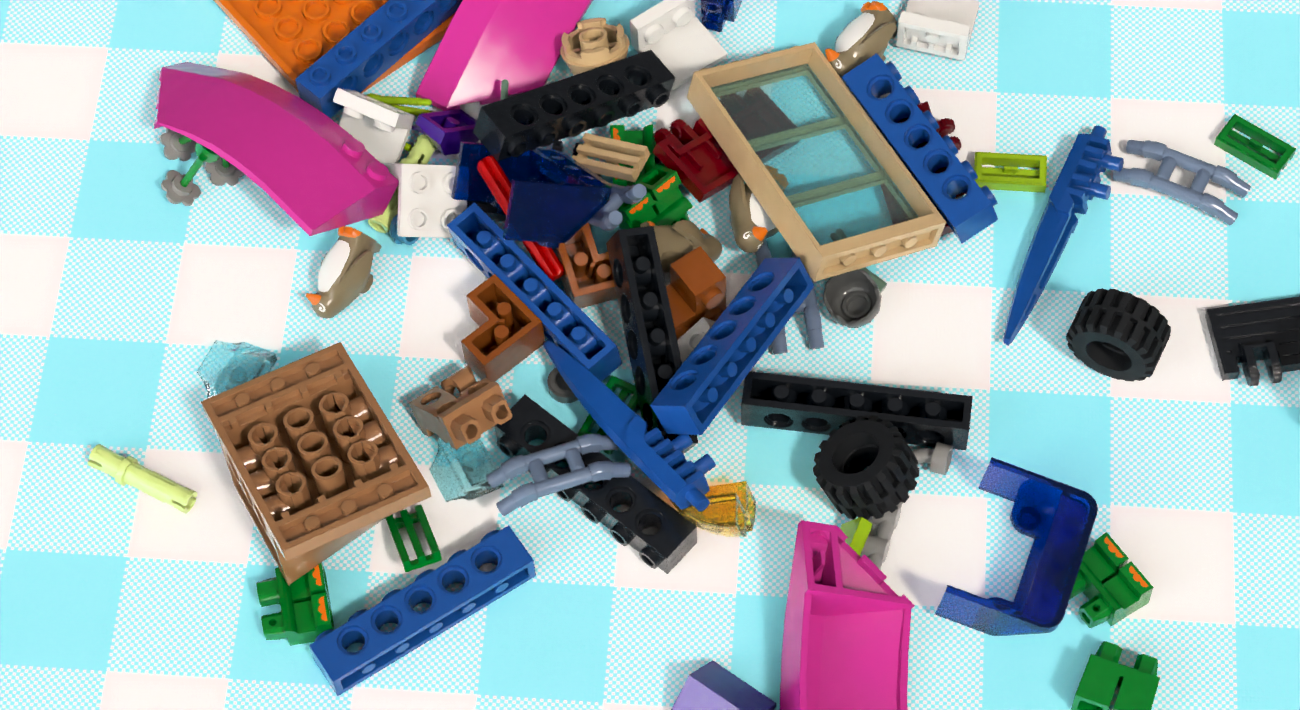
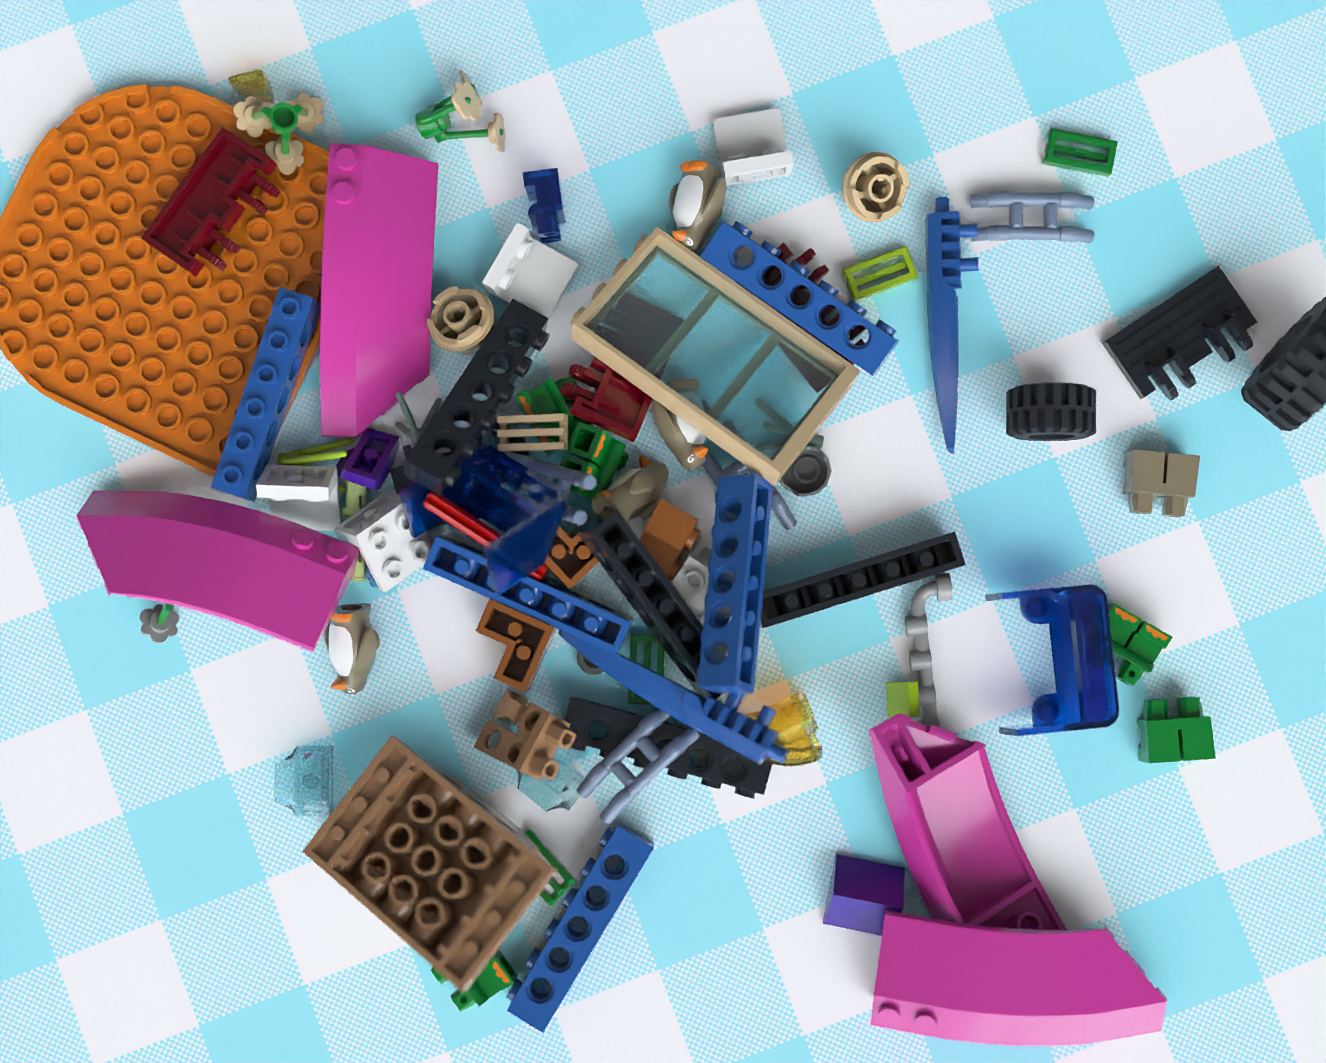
camera: 25 degrees left, 25 degrees up
(150, 482) = (268, 914): yellowish green pin -> none
(859, 446) = (865, 636): black tyre -> none
(1037, 88) = (875, 186): none -> tan cone
(1216, 462) = (1160, 476): none -> dark tan hips

